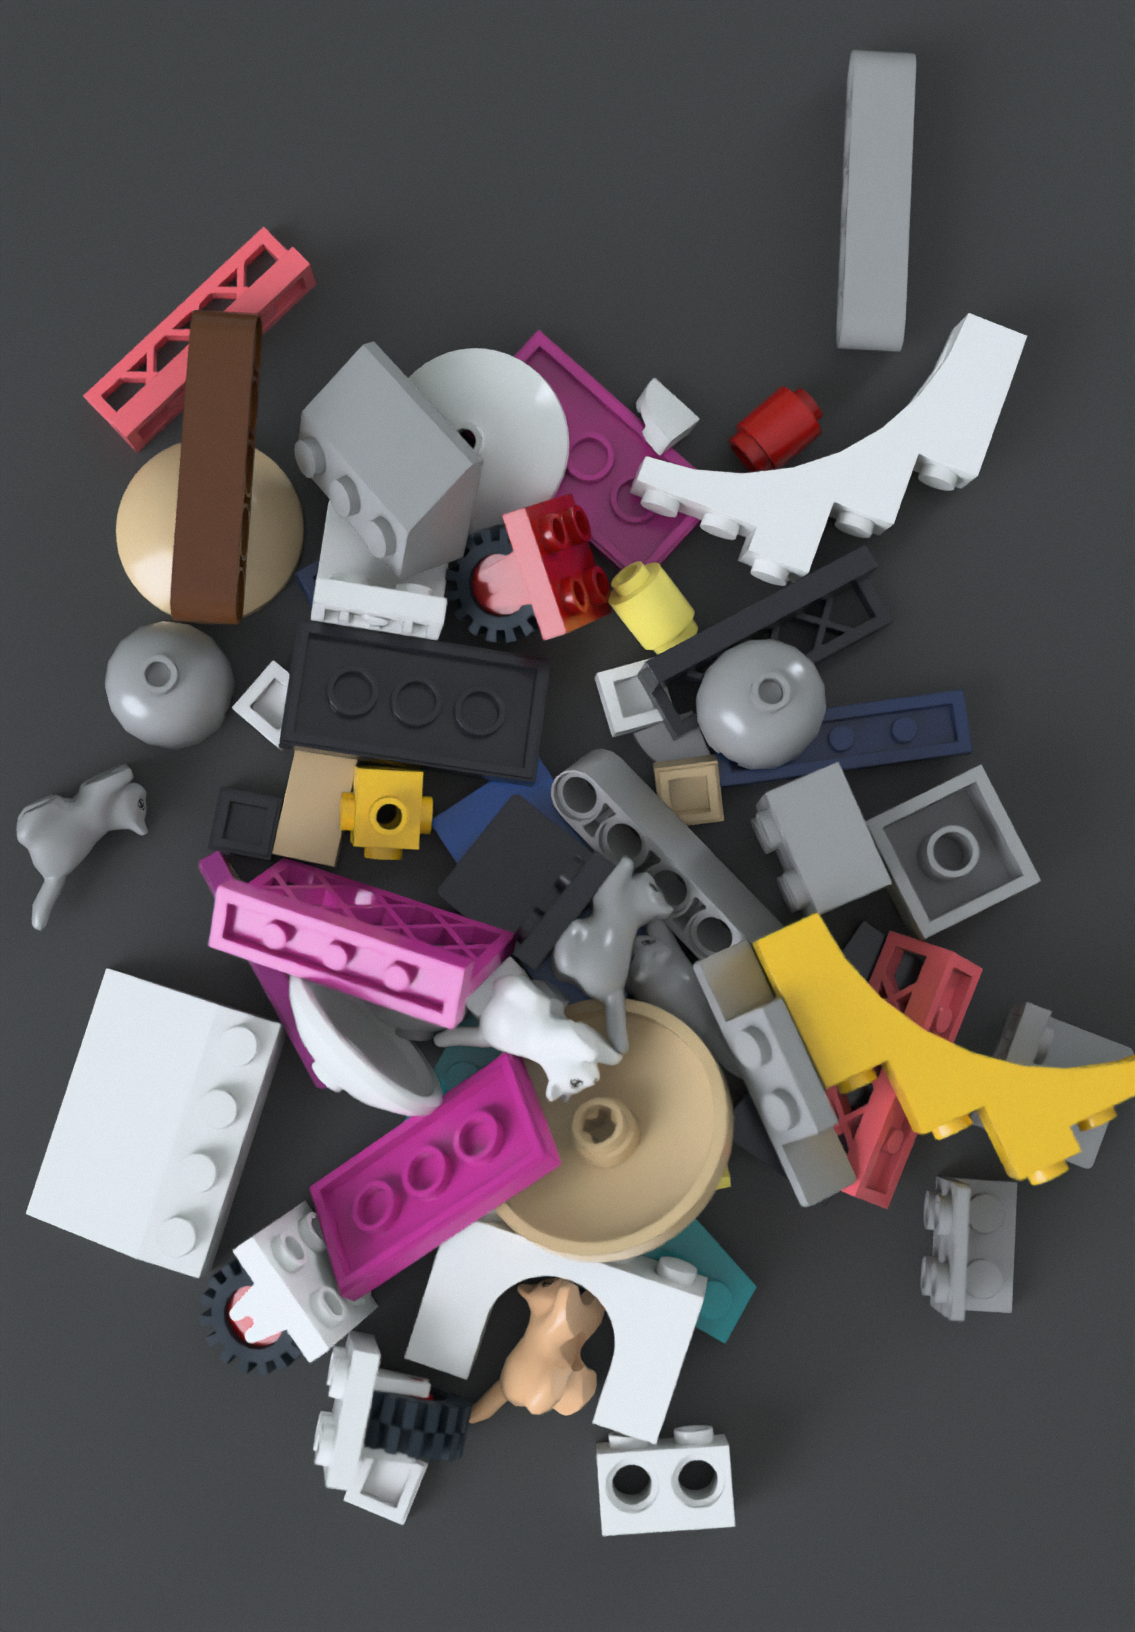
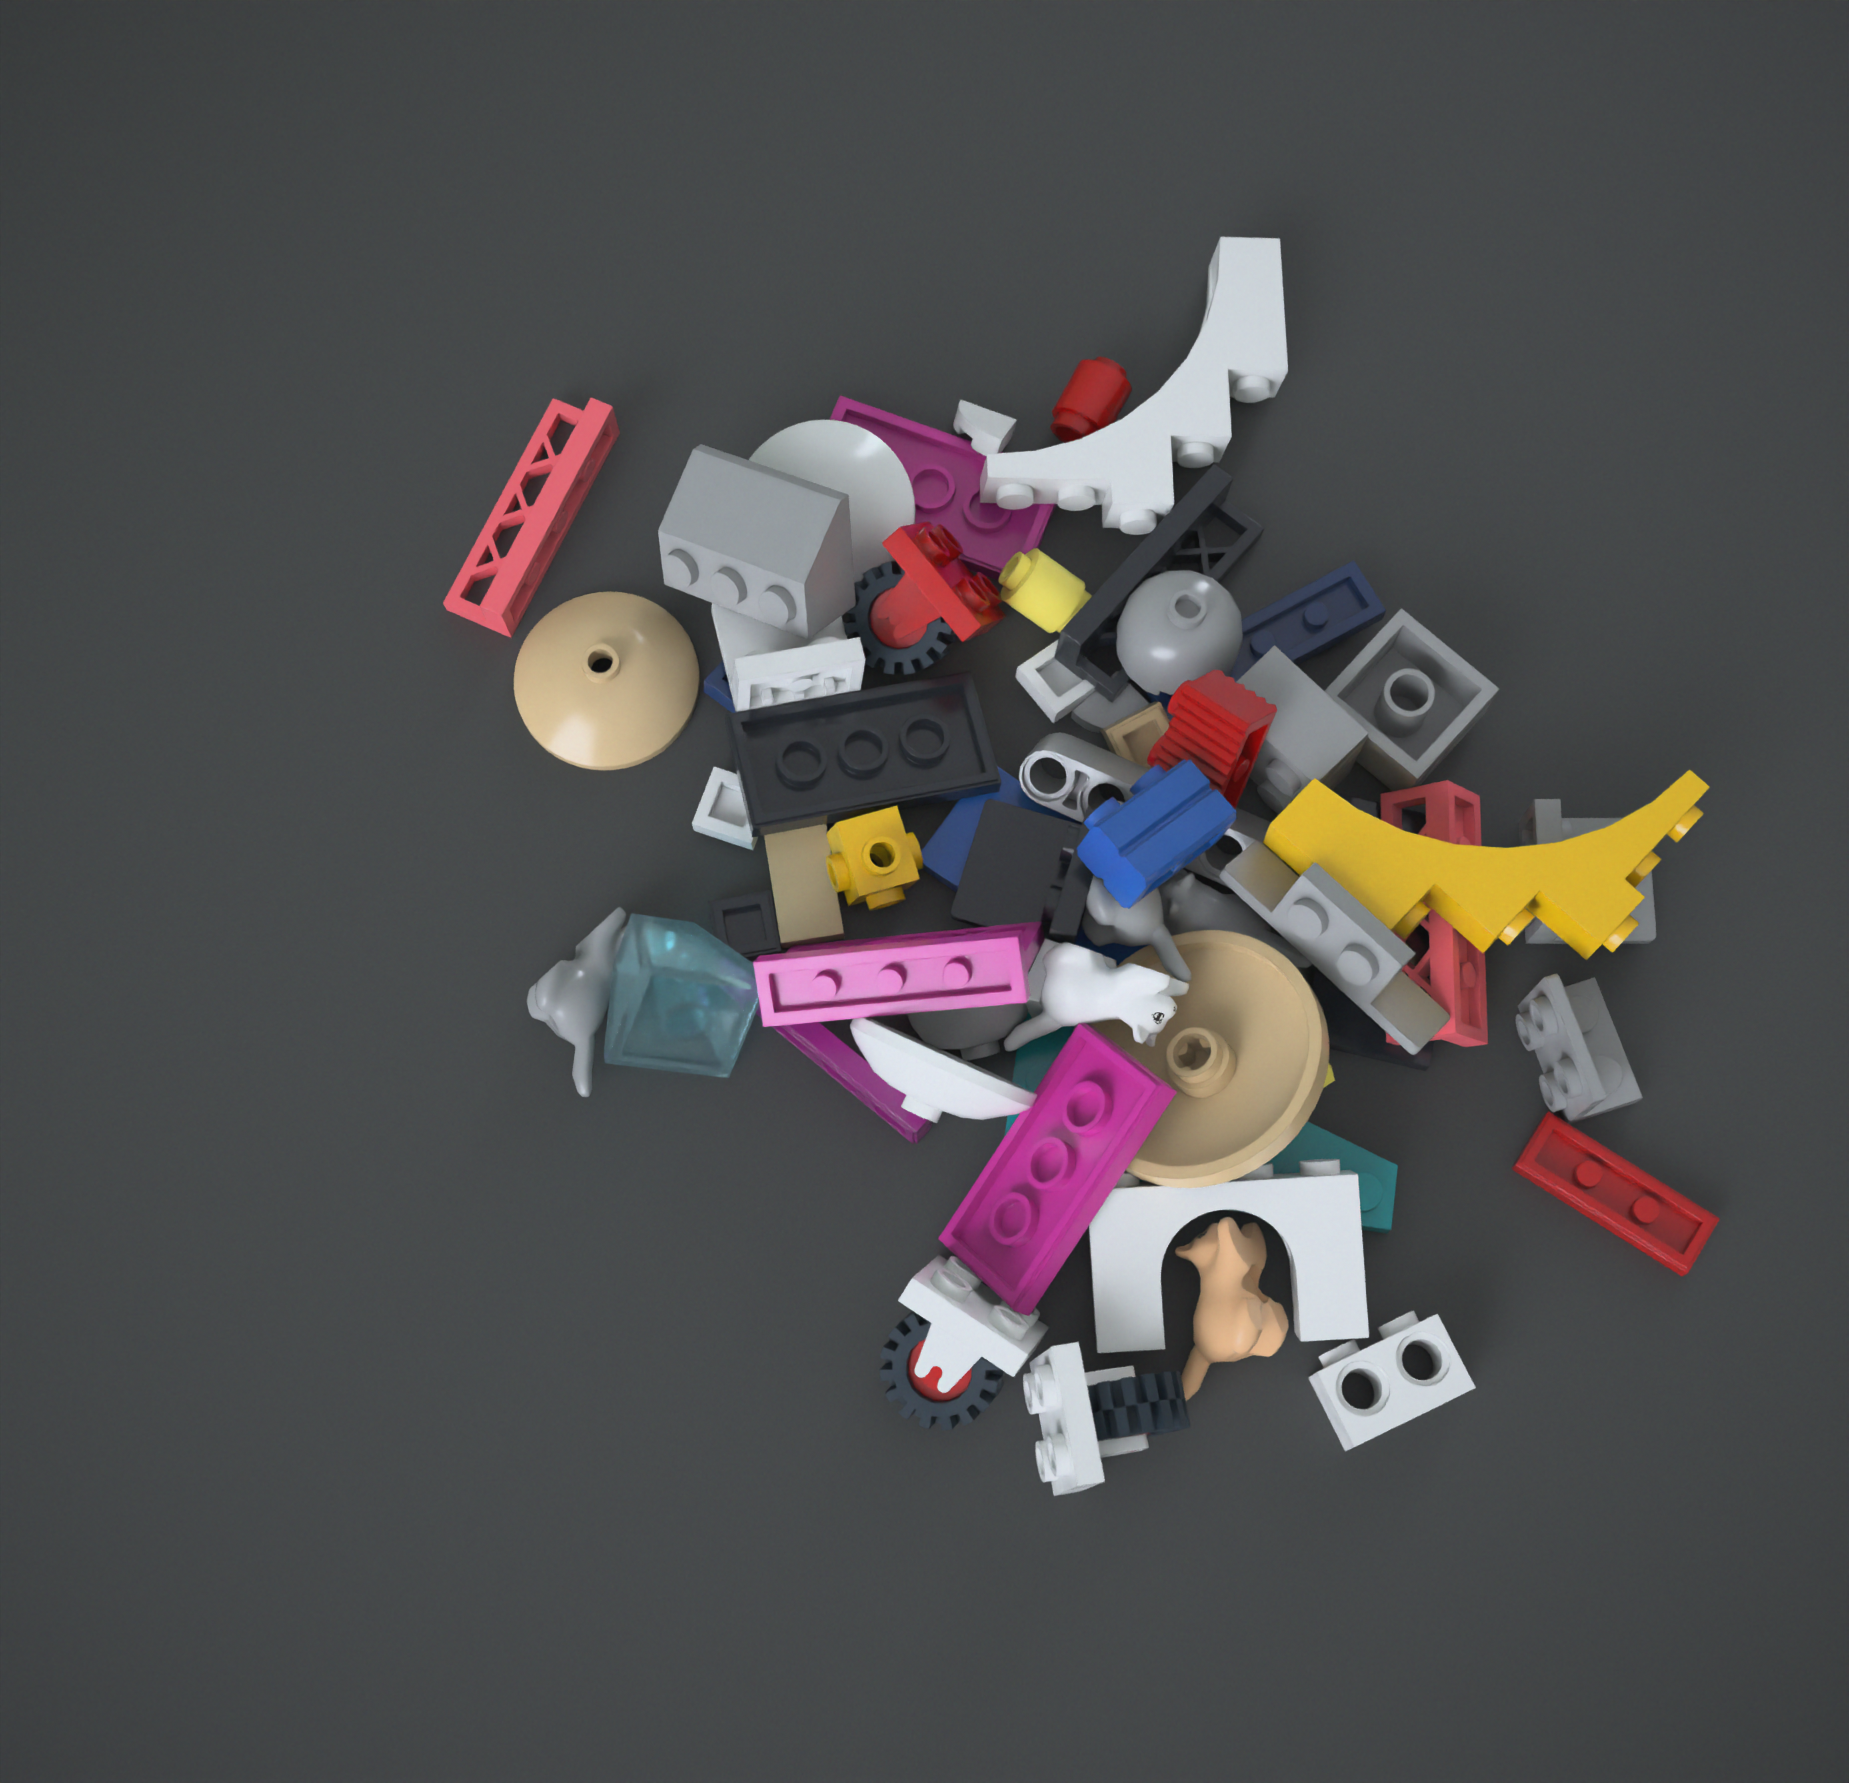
camera: 20 degrees left, 10 degrees down
(148, 876) = (678, 999): none -> clear light blue slope
(157, 1123) = (768, 1230): white slope -> none
(169, 684) = (623, 828): light grey cylinder -> none
(216, 467) = (599, 607): reddish brown beam -> none
(387, 1487) = (1128, 1492): white tile -> none
(643, 908) = (1155, 831): none -> blue brick
(734, 837) = (1217, 729): none -> red brick
(876, 201) = (1096, 182): light grey beam -> none
(948, 1389) = (1615, 1194): none -> red tile

